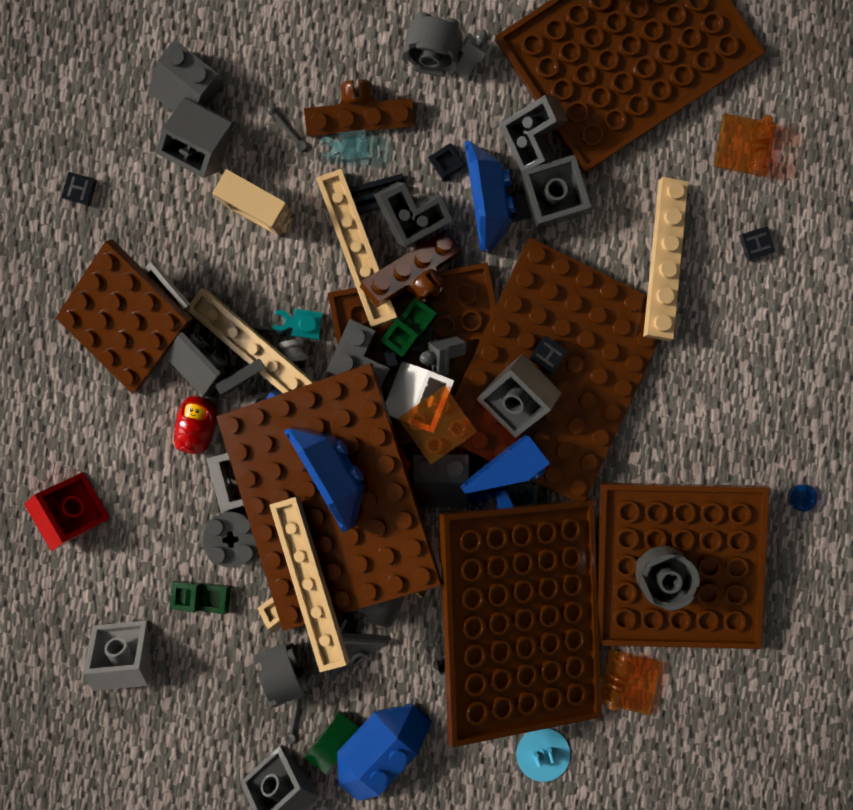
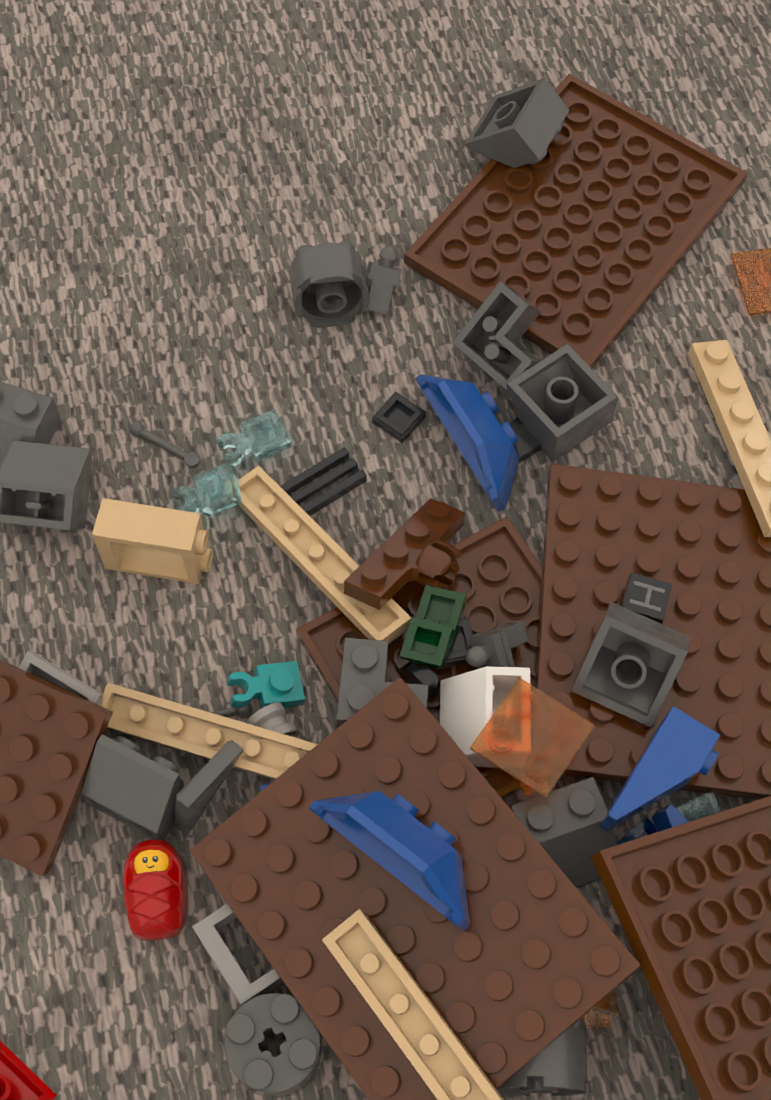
camera: 20 degrees left, 25 degrees down
(305, 177) = (212, 491): none -> clear light blue plate
(359, 112) = (258, 392): reddish brown plate -> none
(411, 220) = (370, 491): dark grey brick -> none

